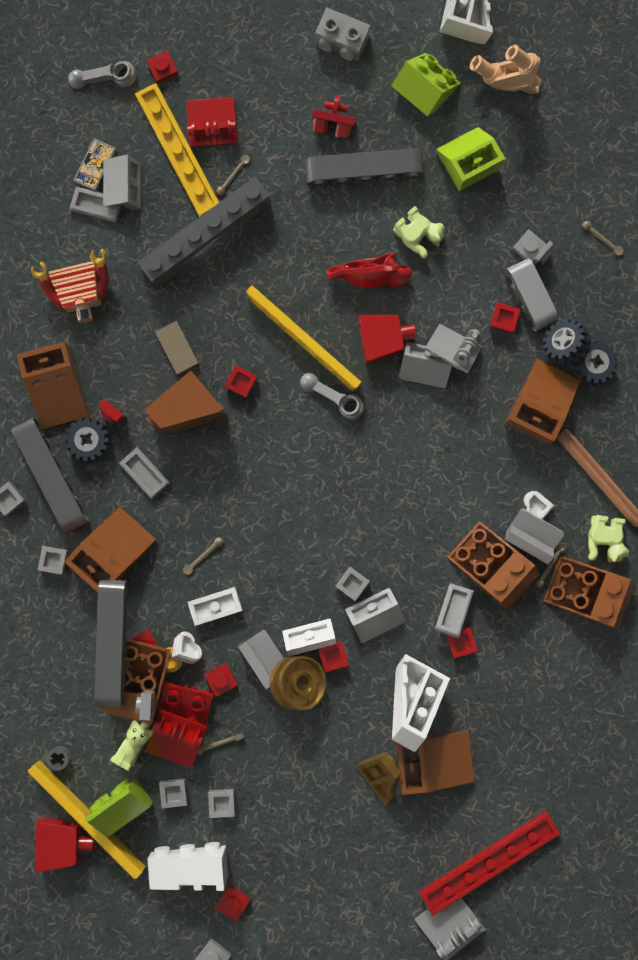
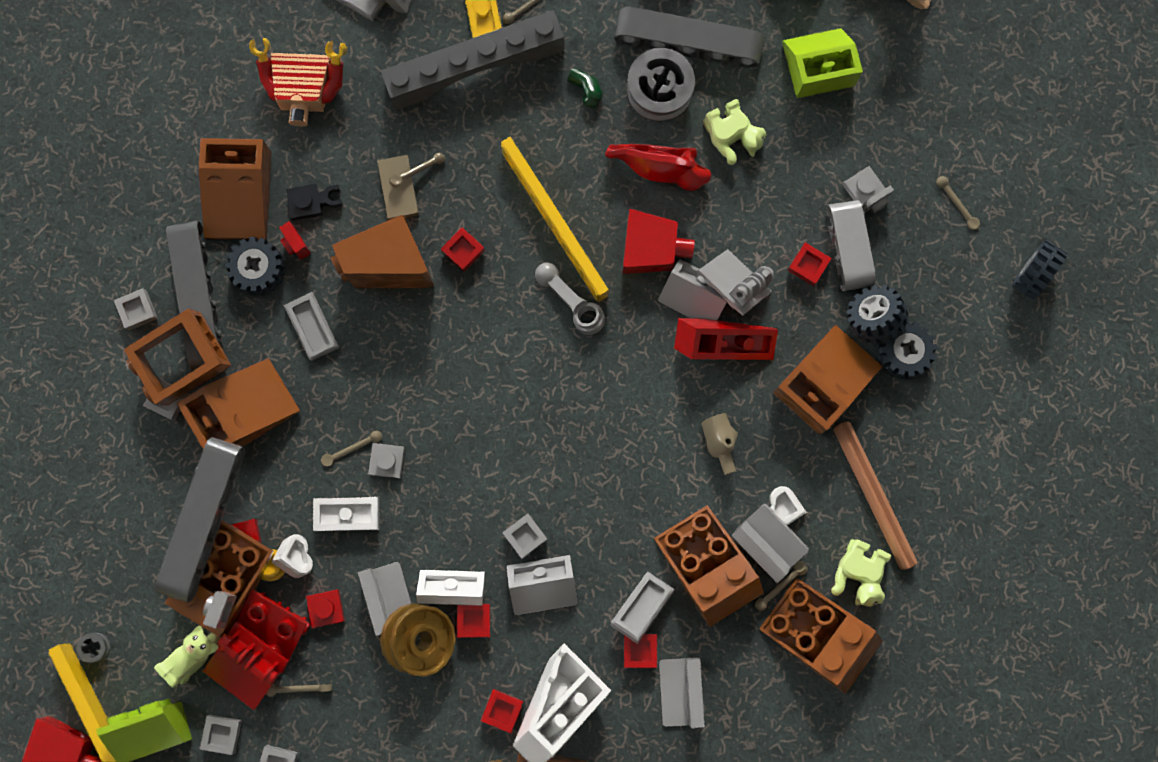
camera: 15 degrees right, 5 degrees down
(70, 510) = (203, 339): none -> dark orange window
(111, 379) = (308, 201): none -> black plate
(174, 343) = (395, 179): none -> dark tan hinge
(232, 557) = (386, 460): none -> light grey plate
(298, 226) = (589, 84): none -> dark green arm
(336, 207) = (642, 74): none -> flat silver wheel
(373, 715) = (502, 710): none -> red plate
(457, 394) = (724, 340): none -> red slope
(476, 471) = (720, 440): none -> dark tan piece
(500, 663) = (681, 692): none -> light grey panel

